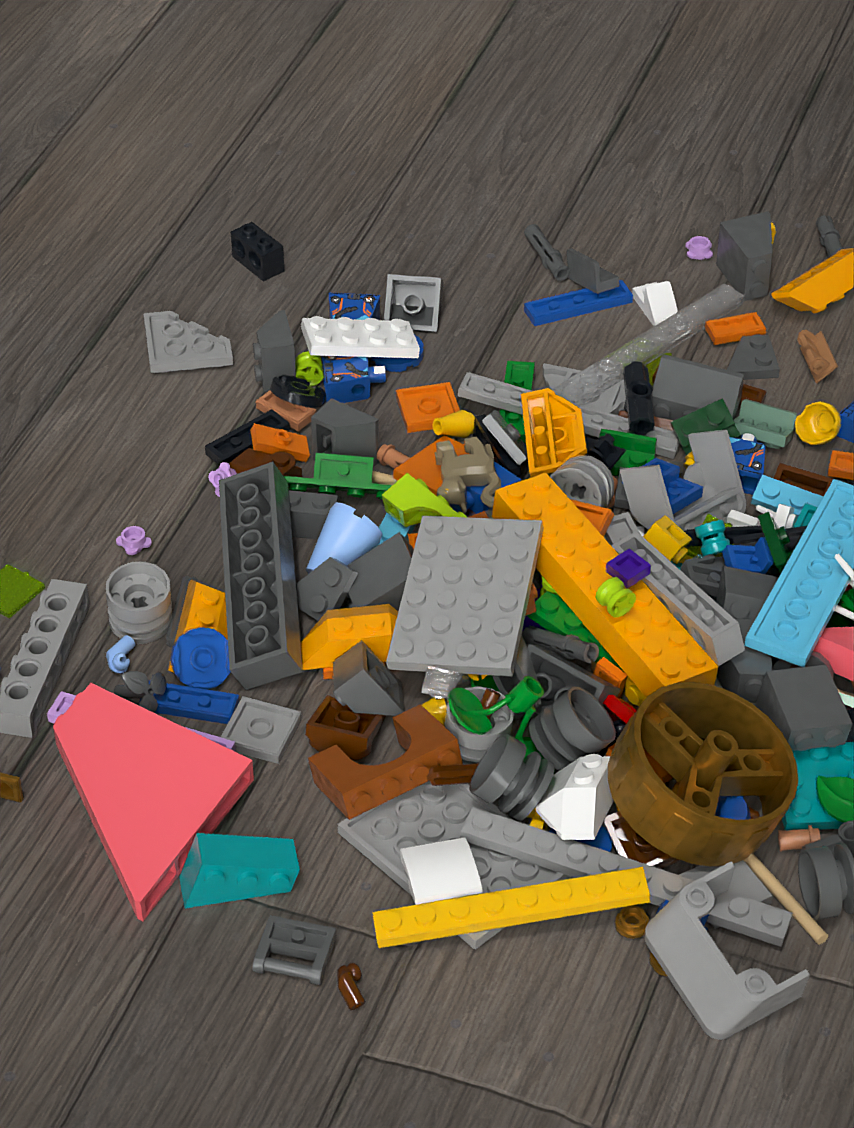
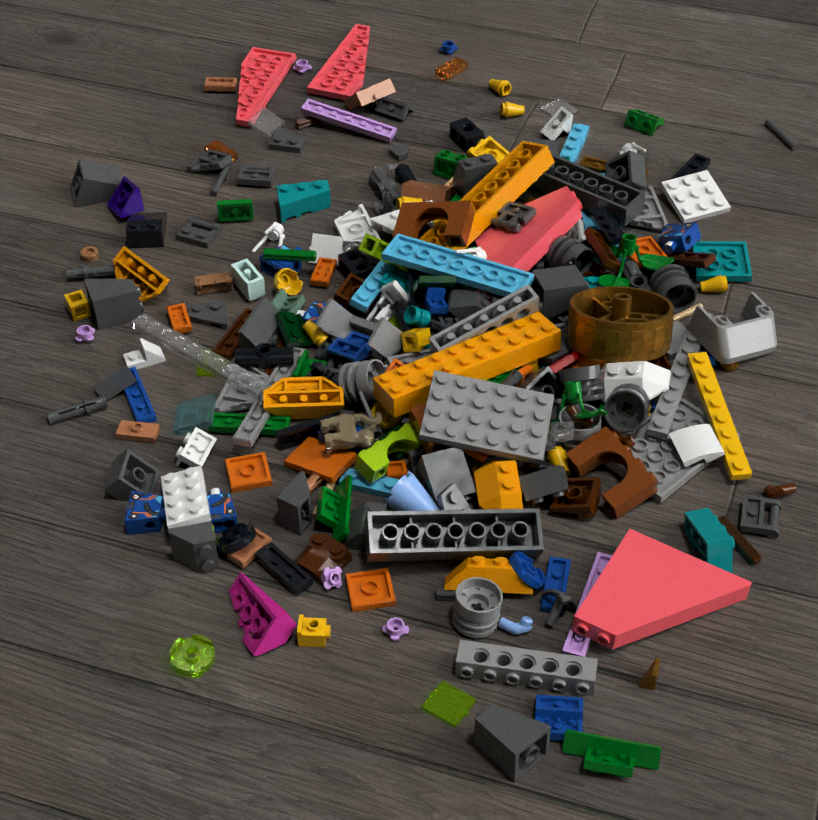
camera: 90 degrees left, 0 degrees up
(108, 372) = (193, 666): none -> clear neon green plate
(137, 463) = (312, 631): none -> yellow brick
(153, 423) = (262, 619): none -> dark pink wedge
(183, 345) = (162, 618): light grey plate -> none
(198, 521) = (370, 589): none -> orange tile
(248, 917) = (741, 542): none -> reddish brown axle
(257, 251) = (52, 573): black brick -> none
(262, 729) = (577, 544): light grey tile -> none
(275, 440) = (294, 545): orange plate -> none
(413, 695) = (536, 467): none -> black arm
(455, 424) = (276, 451): yellow cone -> none
(466, 354) = (196, 449): none -> white bracket
(507, 436) = (306, 414): plate -> none
(508, 307) = (137, 431): none -> nougat plate
(532, 349) = (194, 413): none -> clear light blue plate
(615, 597) = (501, 339): lime wheel -> none
(628, 568) = (473, 335): dark purple plate -> none
(818, 381) = (248, 279): none -> light aqua brick

